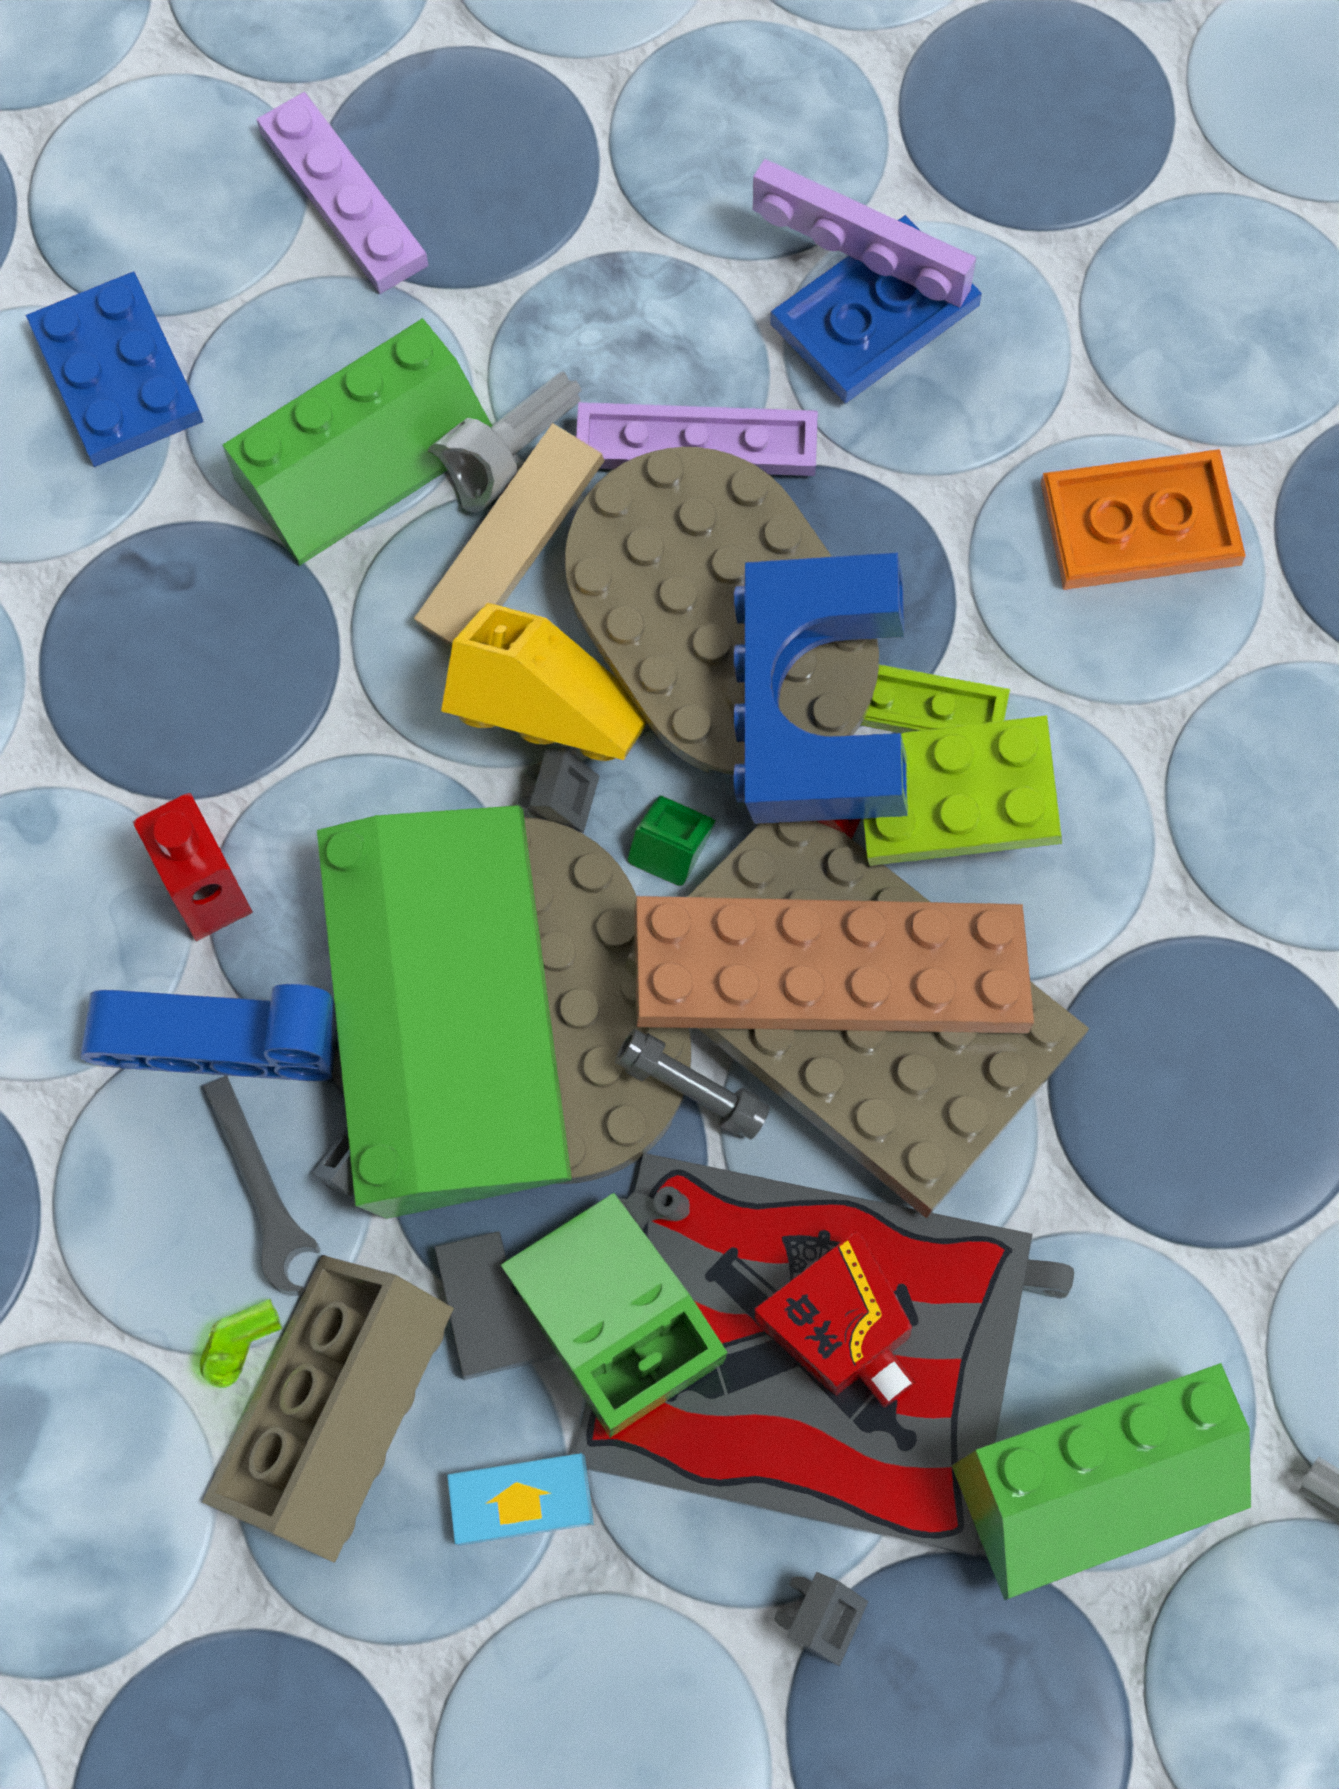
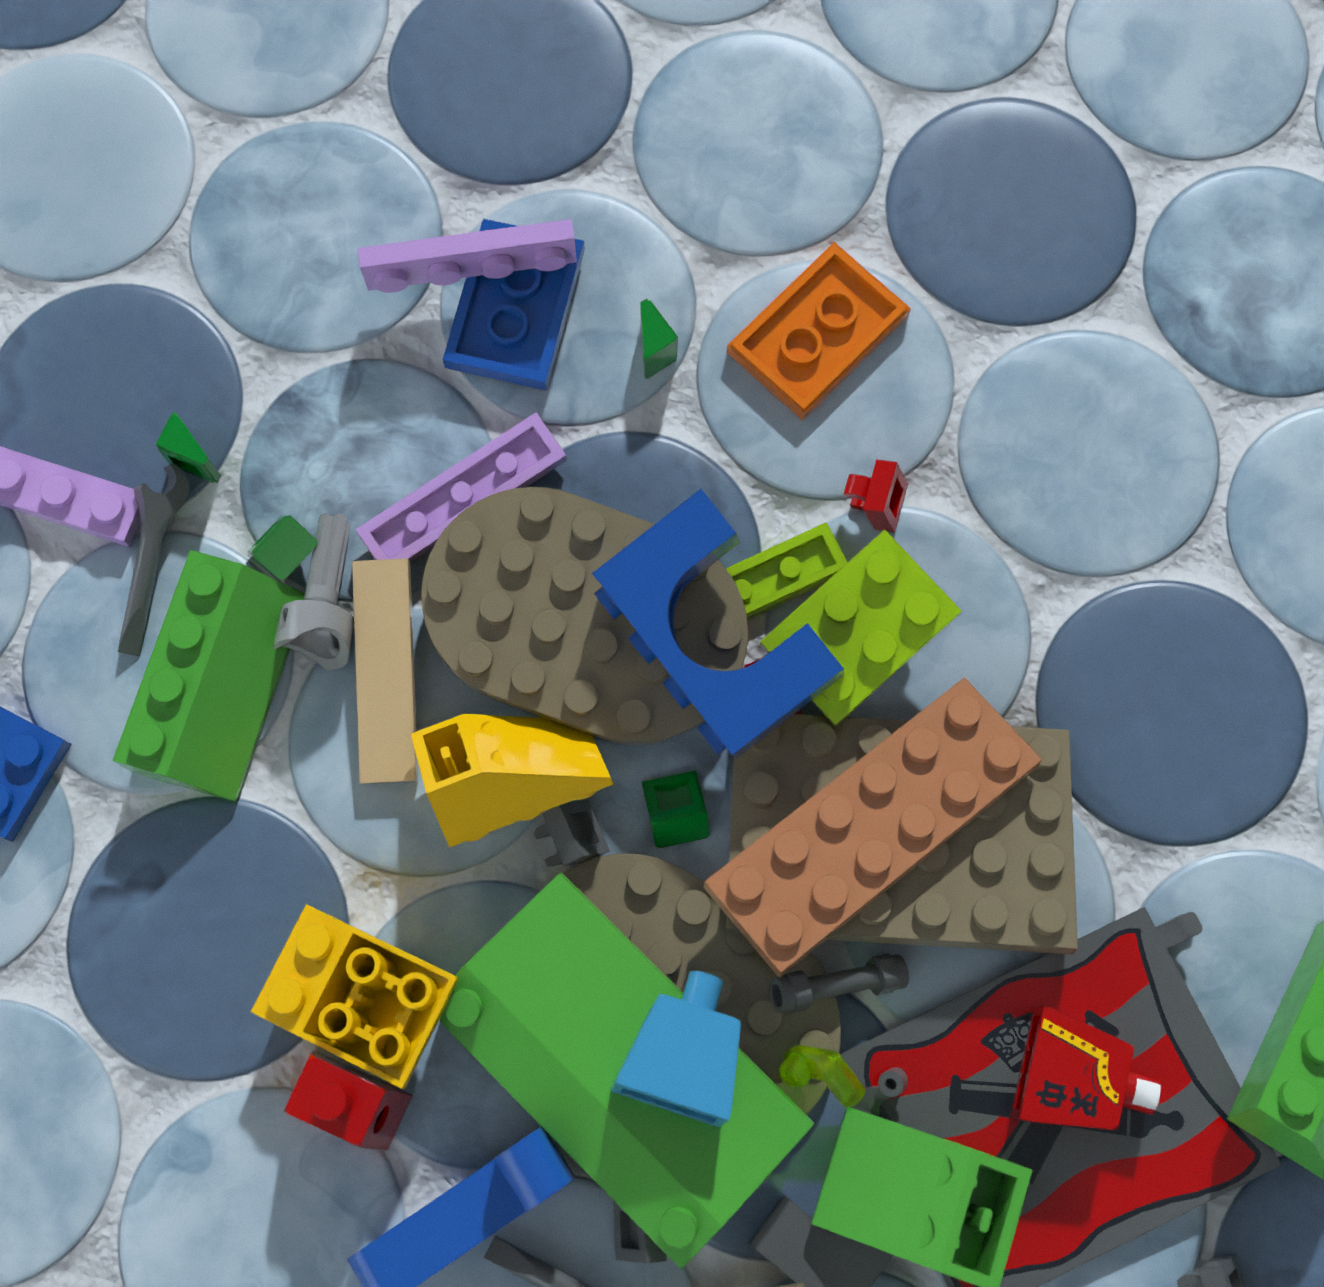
camera: 40 degrees left, 5 degrees up
(266, 775) = (355, 996): none -> yellow slope
(421, 278) = (156, 514): none -> dark grey piece
(487, 240) = (182, 449): none -> green slope
(498, 1021) = (685, 1054): none -> dark azure torso
(504, 375) = (282, 547): none -> green slope
(619, 1138) = (824, 1065): none -> clear neon green arm
(977, 424) = (658, 340): none -> green slope
(1079, 697) = (880, 495): none -> red tile

